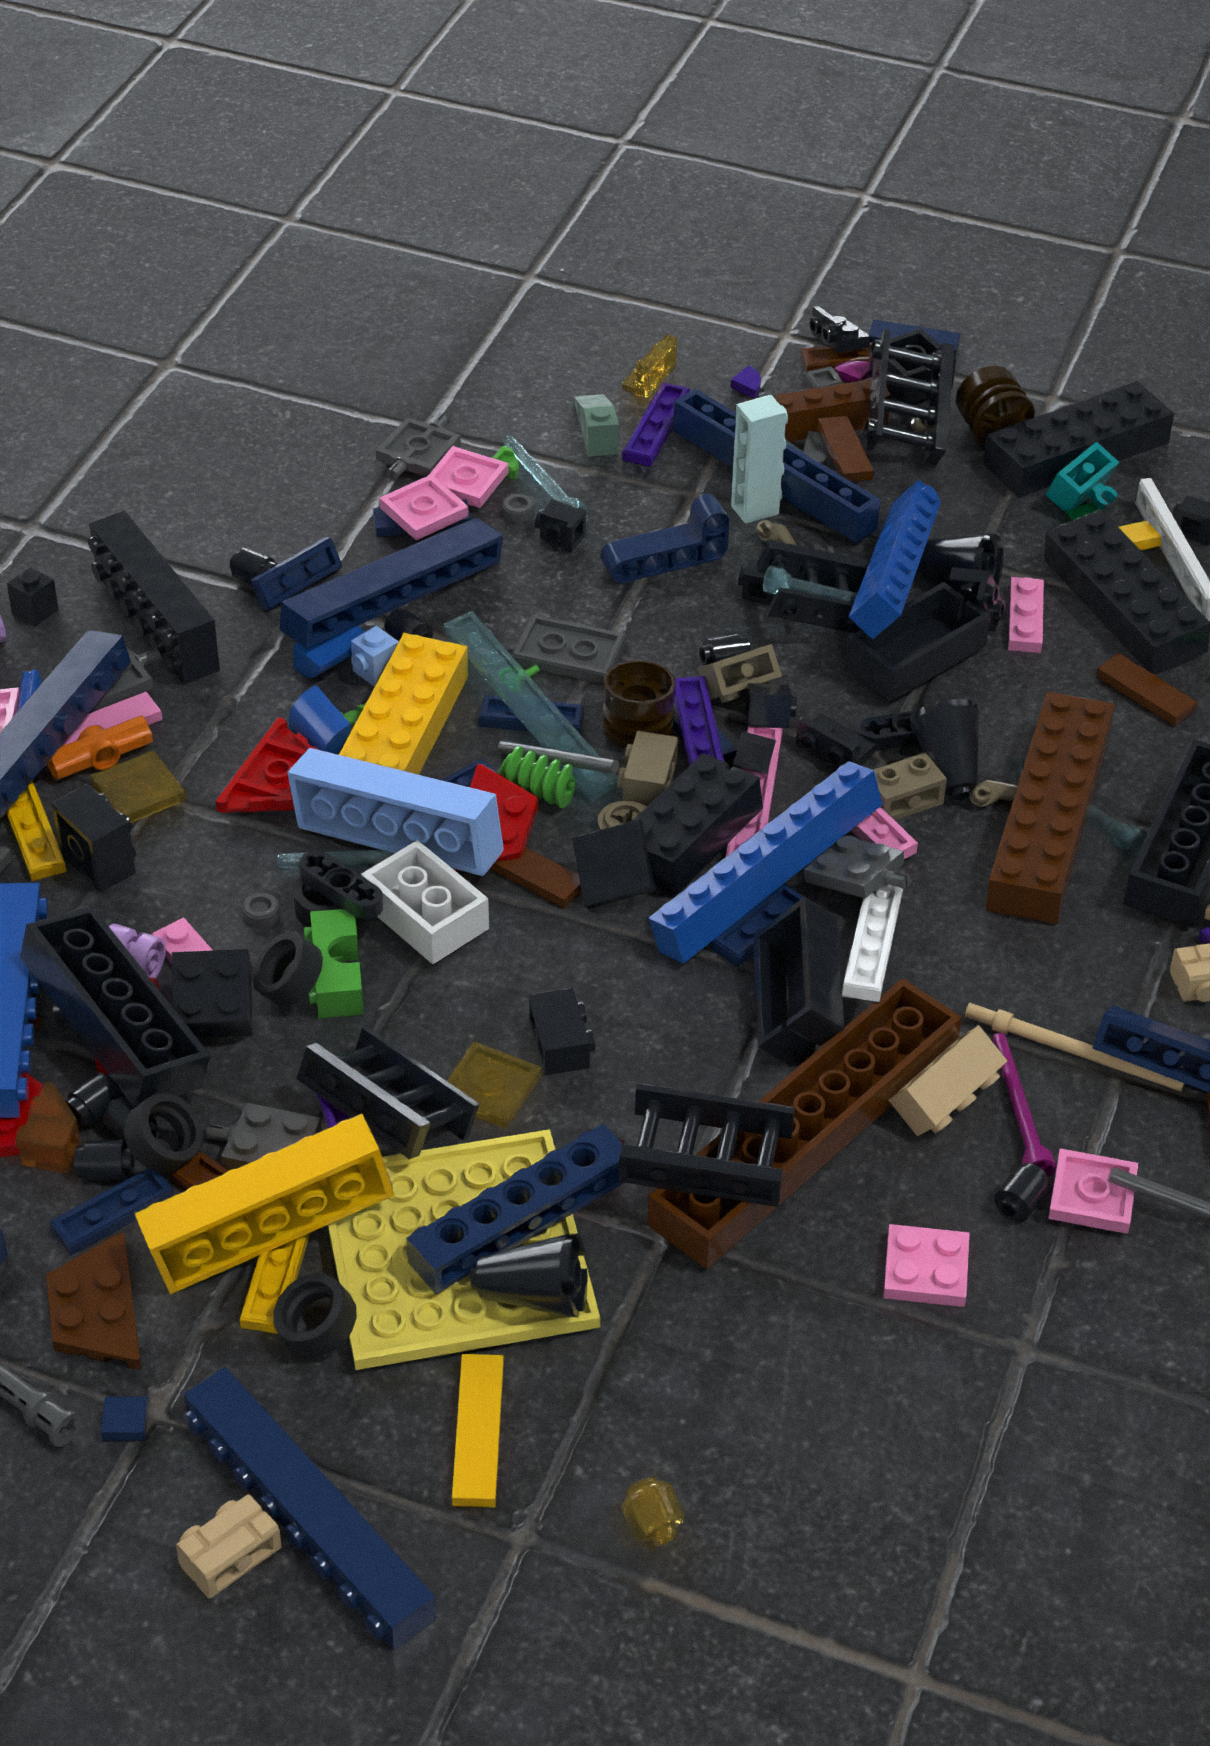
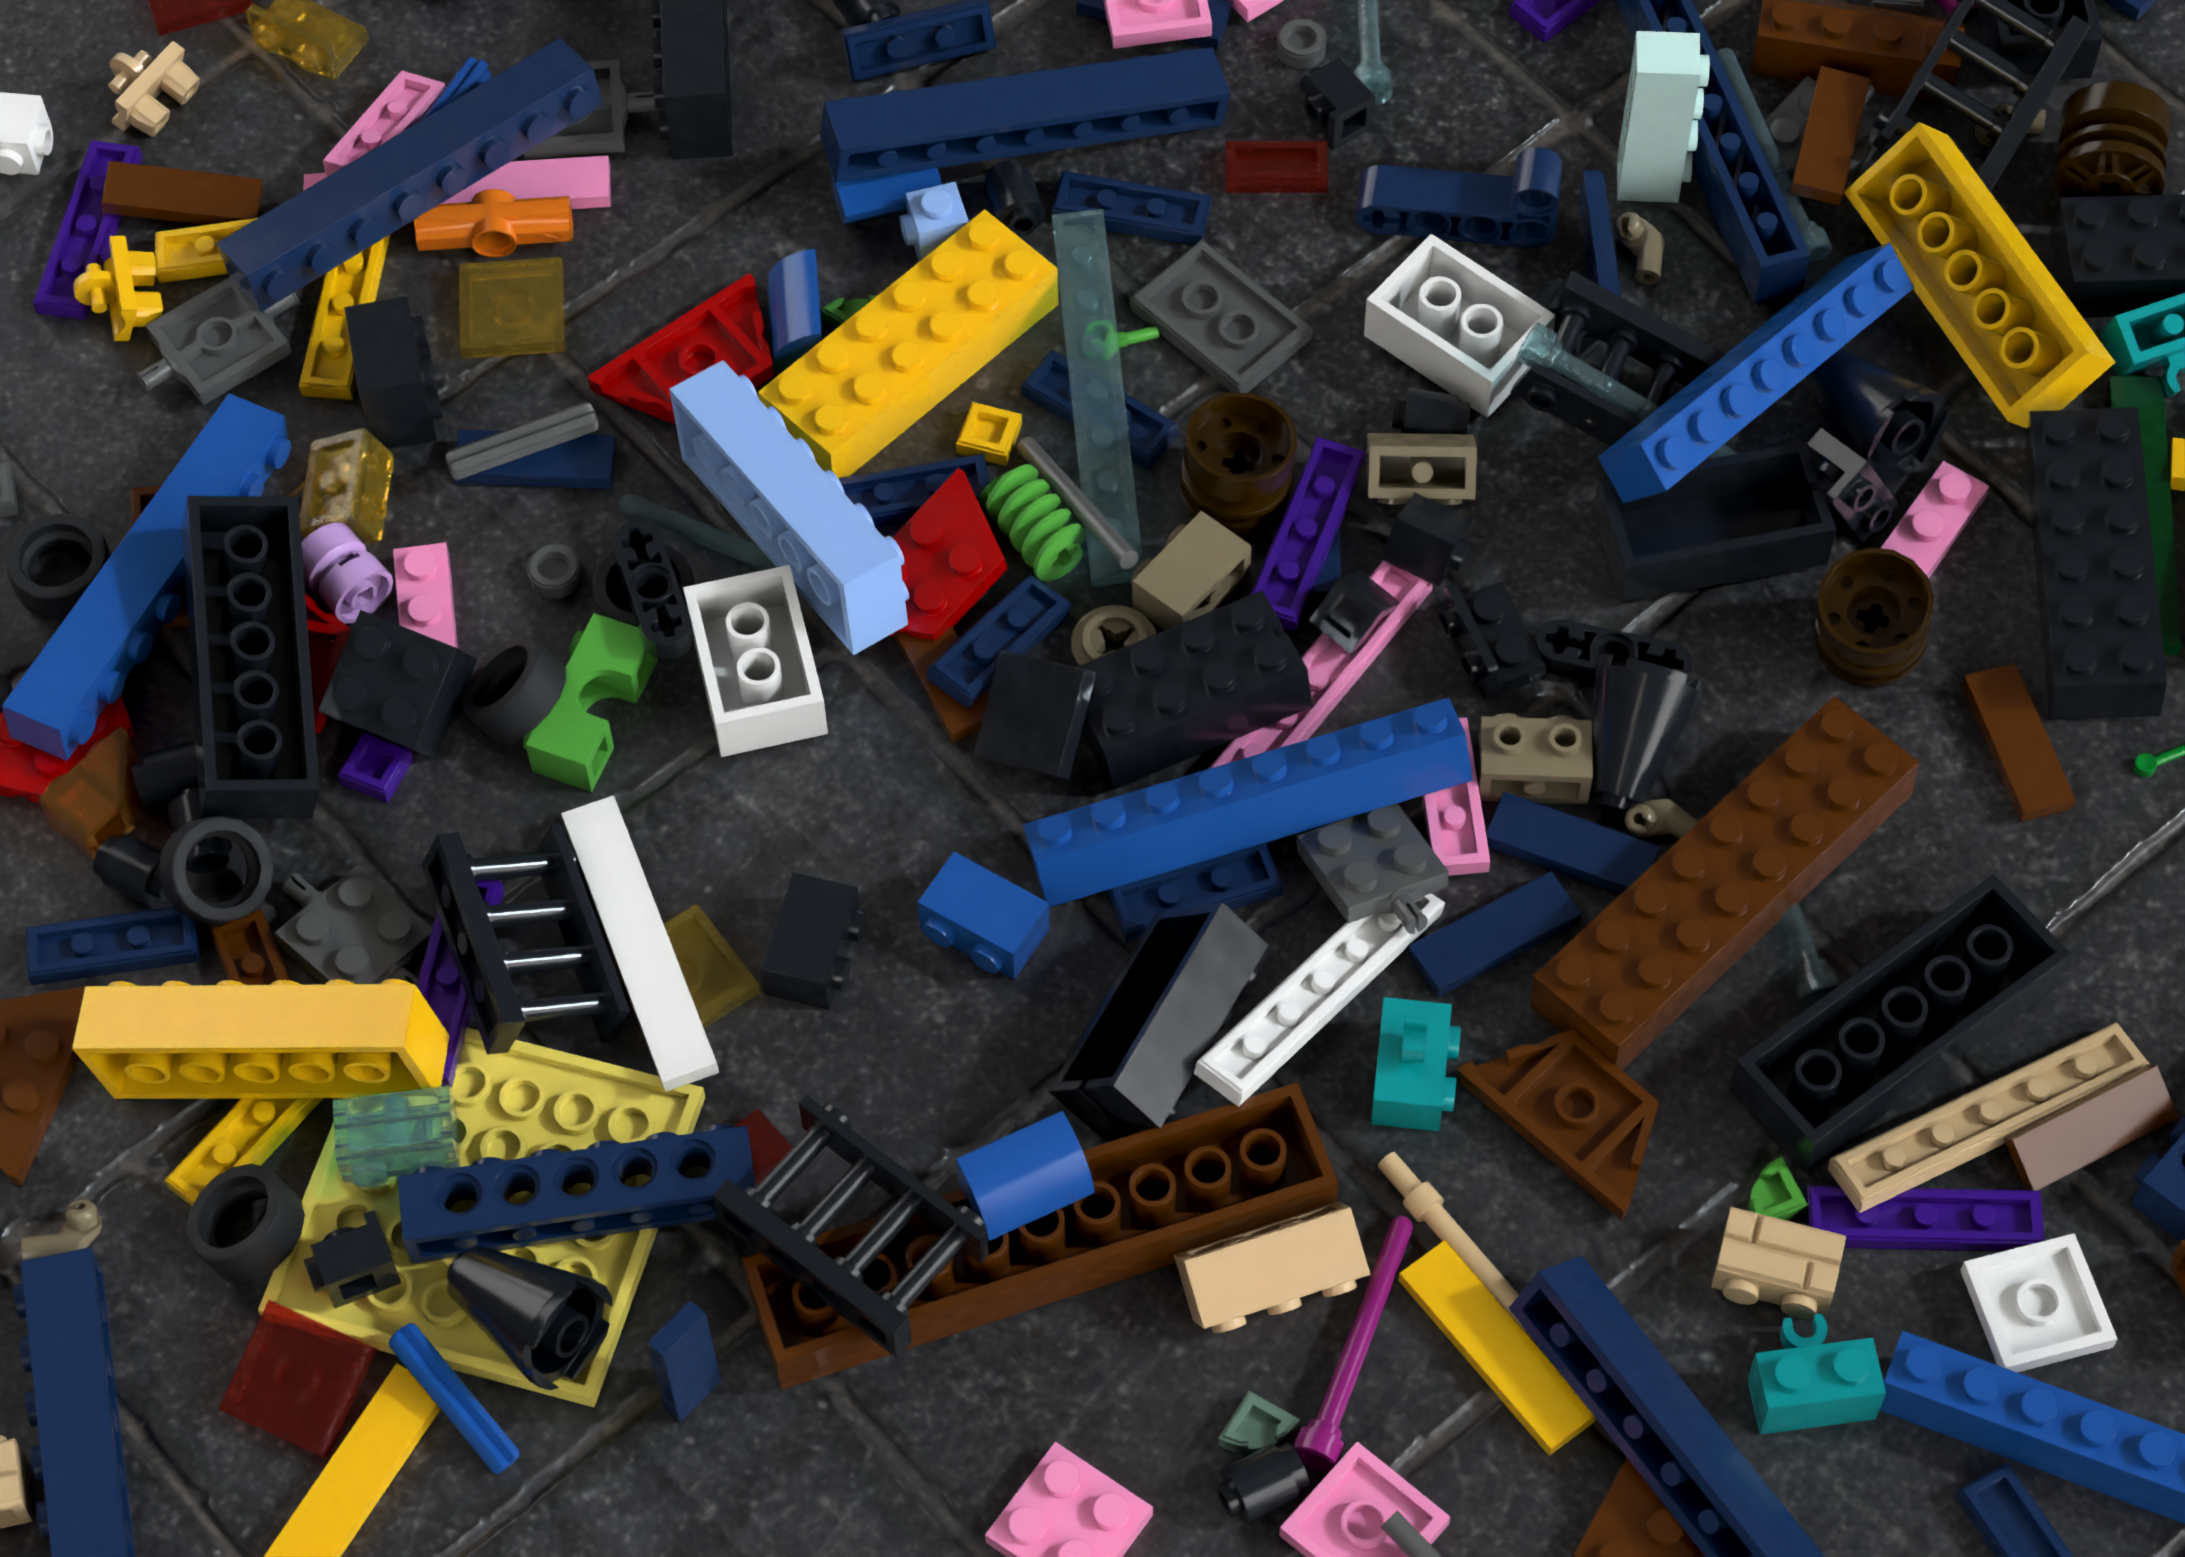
camera: 30 degrees right, 15 degrees up
(101, 895) = (347, 484): none -> clear yellow bracket
(197, 846) = (521, 440): none -> dark grey axle
(200, 1369) = (77, 1233): none -> dark tan arm
(207, 858) = (572, 464): none -> dark blue tile
(223, 1050) = (375, 767): none -> dark purple tile
(381, 1223) = (395, 1134): none -> clear light blue brick
(405, 1301) = (352, 1263): none -> black brick
(406, 1387) = (298, 1378): none -> clear red tile
(474, 747) = (989, 433): none -> yellow tile
(492, 612) = (1136, 207): none -> dark blue tile
(492, 1091) = (640, 944): none -> white tile
(514, 1353) = (454, 1398): none -> blue axle
(547, 568) = (1276, 167): none -> clear red tile
(556, 845) = (1011, 625): none -> dark blue tile
(651, 979) = (983, 916): none -> blue brick
(654, 1260) = (684, 1360): none -> dark blue tile
(710, 599) = (1454, 323): none -> white brick
(746, 531) = (1598, 231): none -> dark blue tile
(790, 1074) = (1025, 1175): none -> blue brick
(942, 880) = (1494, 934): none -> dark blue tile
(948, 956) = (1412, 1064): none -> teal brick
(953, 822) = (1569, 844): none -> dark blue tile
(973, 482) = (1978, 276): none -> yellow brick
(994, 1170) = (1257, 1426): none -> sand green tile
(1036, 651) = (1879, 590): none -> dark brown wheel
(1051, 945) = (1573, 1111): none -> reddish brown wing
(1096, 1075) = (1496, 1347): none -> yellow tile
(1184, 937) = (1777, 1193): none -> bright green tile

